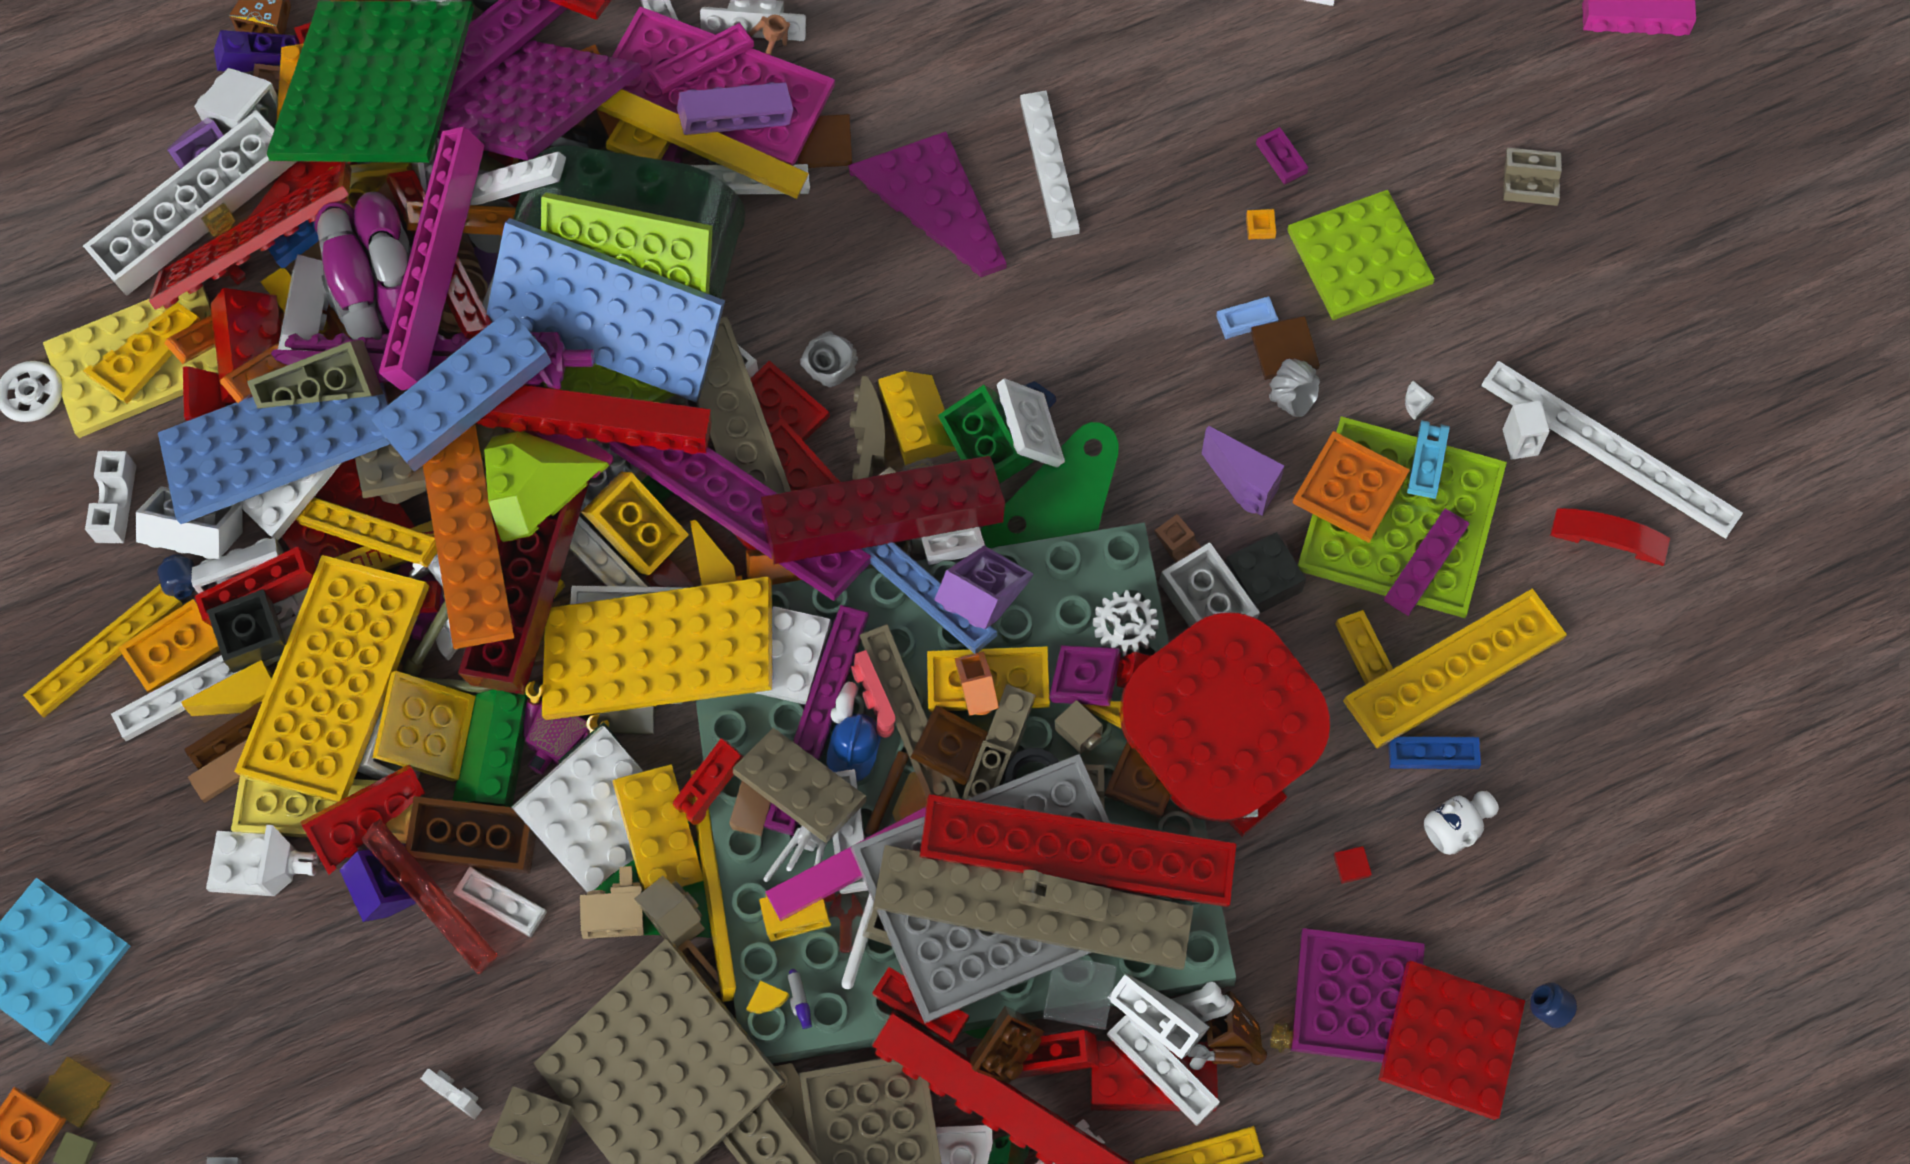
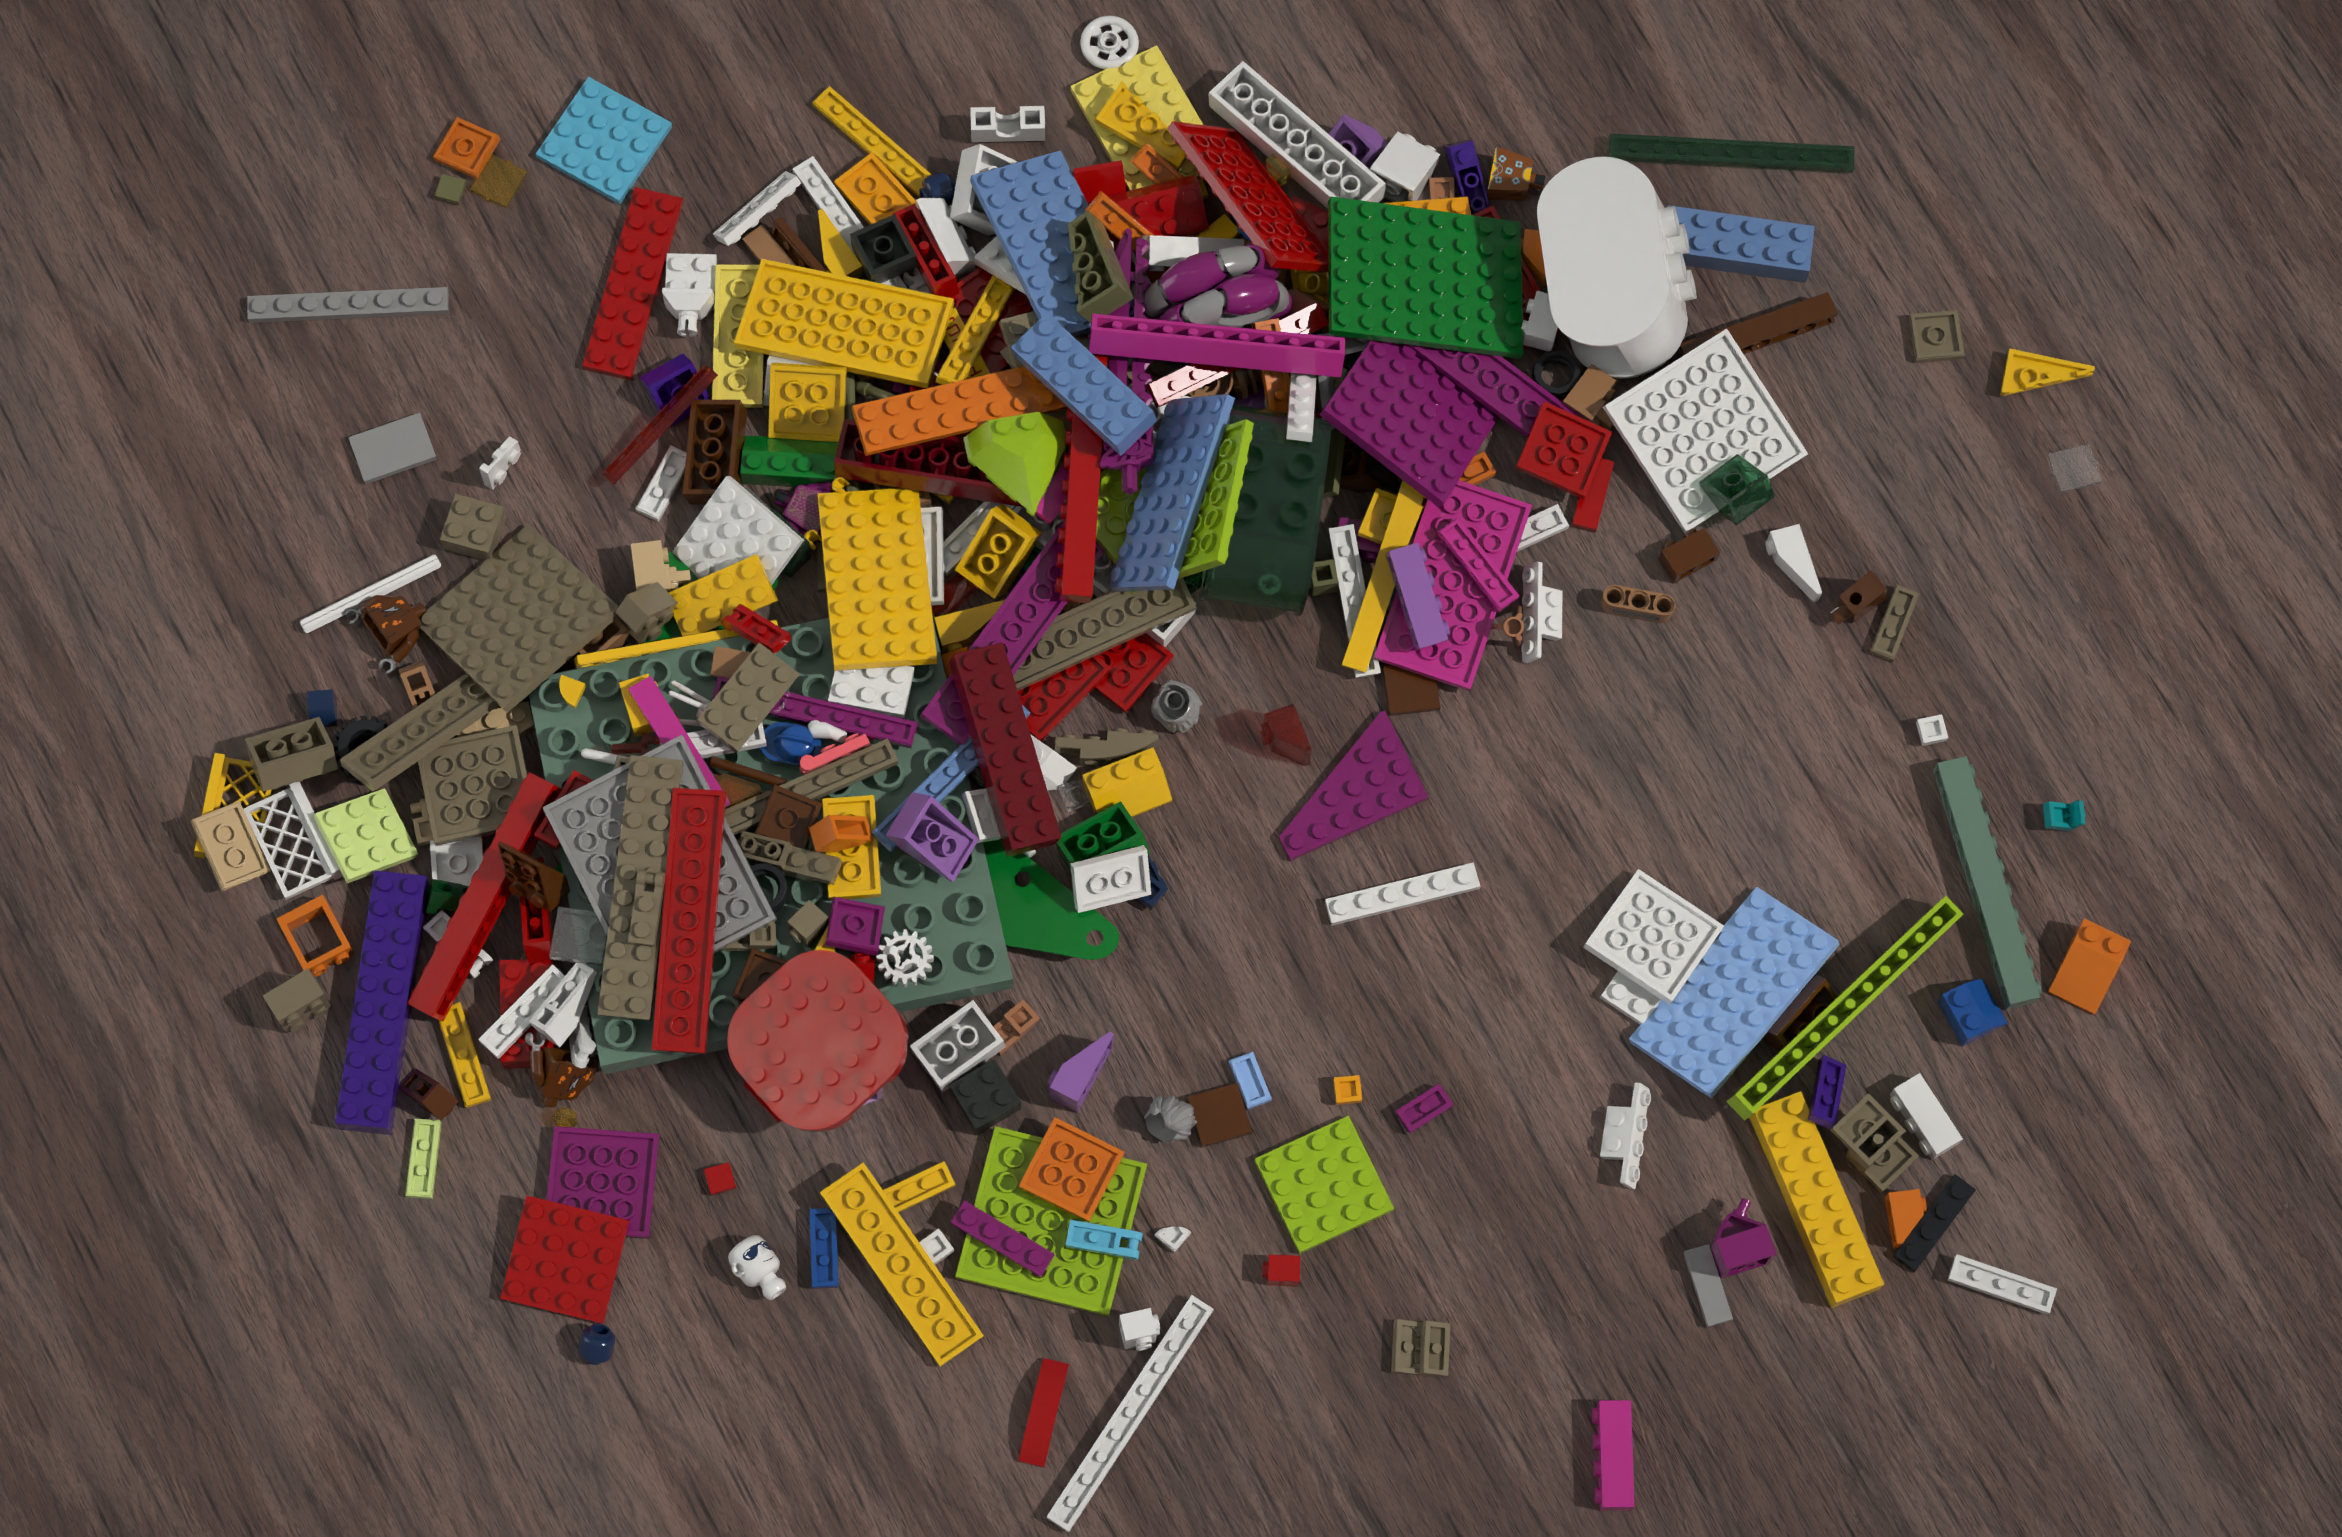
camera: 80 degrees right, 5 degrees up
(166, 781) = (763, 203): none -> white plate
(238, 931) = (633, 283): none -> red plate
(340, 827) = (716, 349): red wing -> none
(798, 1001) = (570, 715): piece -> none
(873, 250) = (1286, 735): none -> clear red slope
(1430, 632) = (936, 1246): none -> white plate
(1455, 294) = (1282, 1270): none -> red brick

